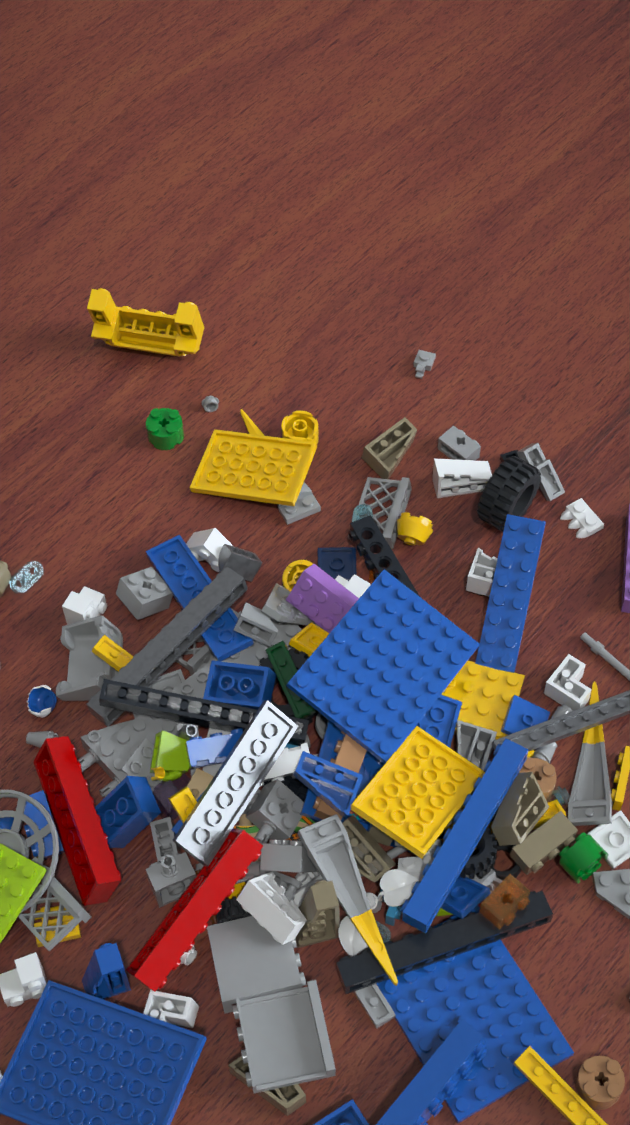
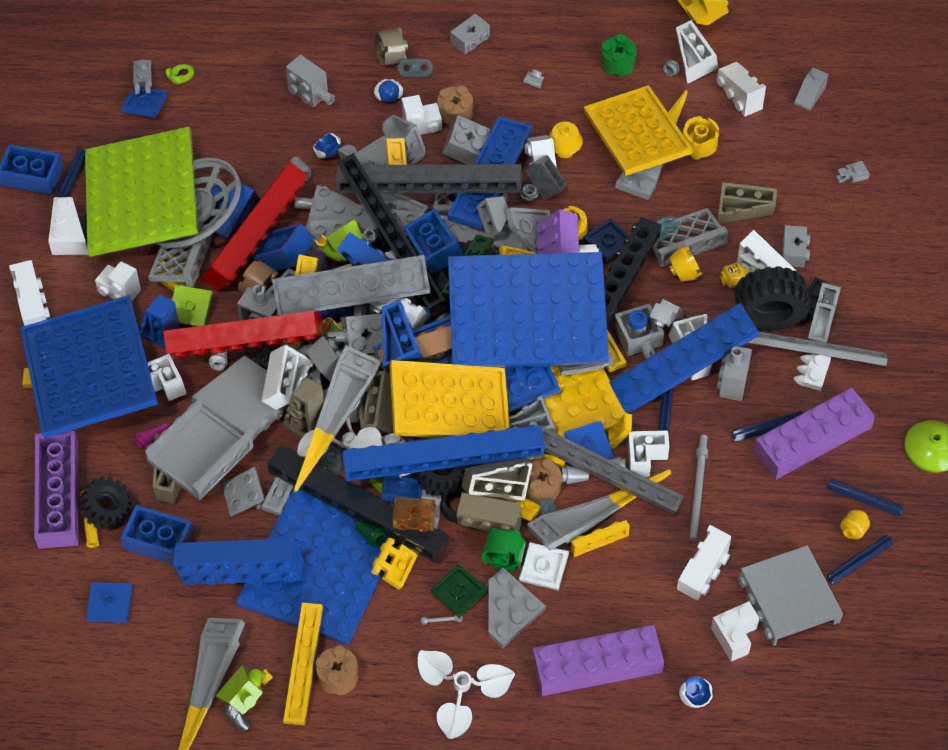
camera: 50 degrees right, 0 degrees up
(28, 613) = (388, 90): none -> blue hair
(34, 513) = (470, 34): none -> light grey brick
(98, 574) = (455, 102): none -> medium nougat brick
(104, 929) = (192, 305): none -> lime plate
(124, 501) = (534, 78): none -> light grey plate
(136, 856) = (258, 274): none -> medium nougat brick
(208, 518) = (566, 139): none -> yellow cone
(213, 376) = (695, 52): none -> white wedge
(215, 1076) = (145, 438): none -> dark pink cone
(278, 373) = (741, 88): none -> white wedge
(323, 331) = (811, 89): none -> light grey slope
(348, 1031) = (243, 492): none -> light grey hinge
(445, 597) = (637, 319): none -> blue tile
(450, 505) = (732, 274): none -> yellow head
(454, 602) = (640, 340): none -> light grey brick
(456, 574) = (666, 313): none -> light grey slope
(482, 953) = (371, 533): none -> dark green cone
(529, 953) = (400, 565): none -> yellow plate
(536, 687) = (620, 430): none -> yellow plate
(541, 649) = (665, 411): none -> dark blue axle
(552, 570) = (734, 373): none -> light grey brick
(577, 492) = (821, 348): none -> light grey tile
(589, 924) = (458, 591): none -> dark green plate
(608, 586) = (762, 427): none -> dark blue axle
(612, 944) = (424, 620): none -> light grey hinge

